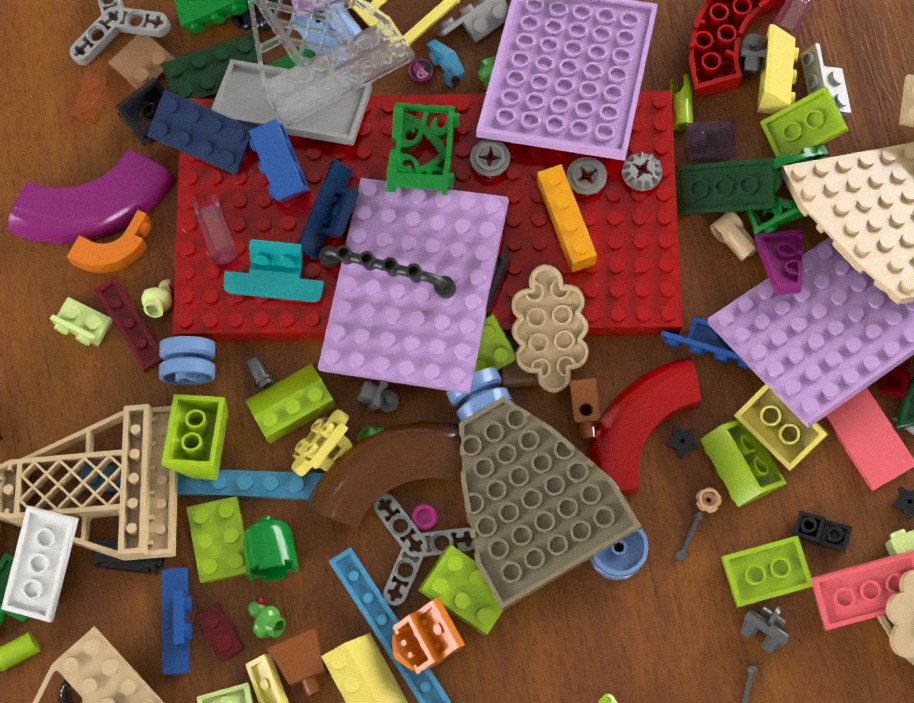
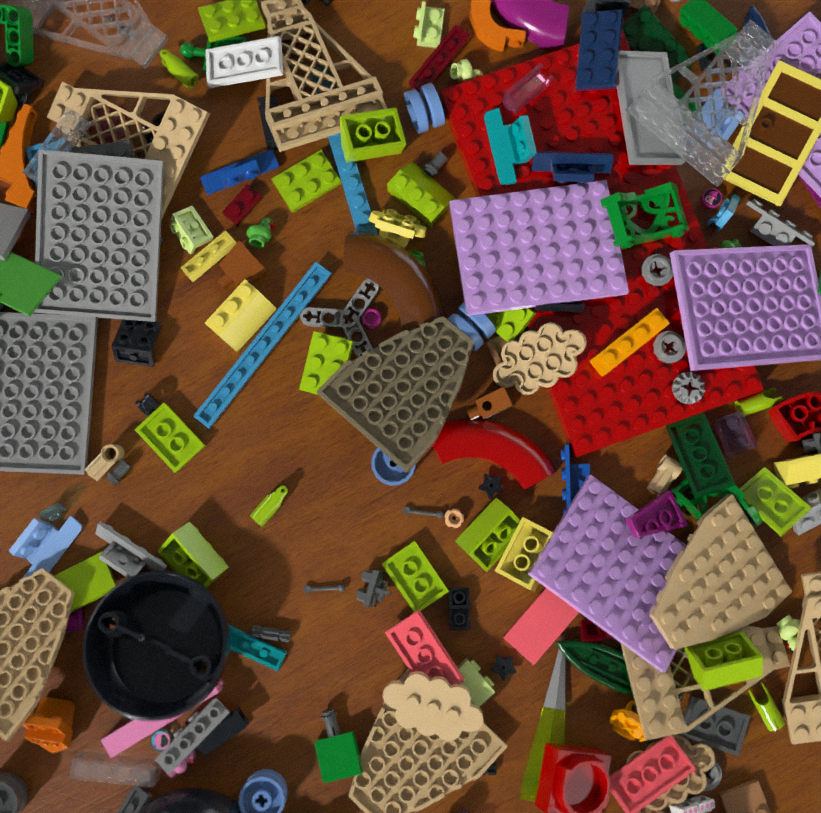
camera: 60 degrees right, 10 degrees up
(269, 550) = (309, 216): green cylinder -> none
(278, 161) = (596, 113): blue brick -> none
(331, 257) = (537, 181): pearl dark grey bar -> none
(376, 397) = (445, 252): dark grey hips -> none
(425, 637) = (282, 348): orange piece -> none

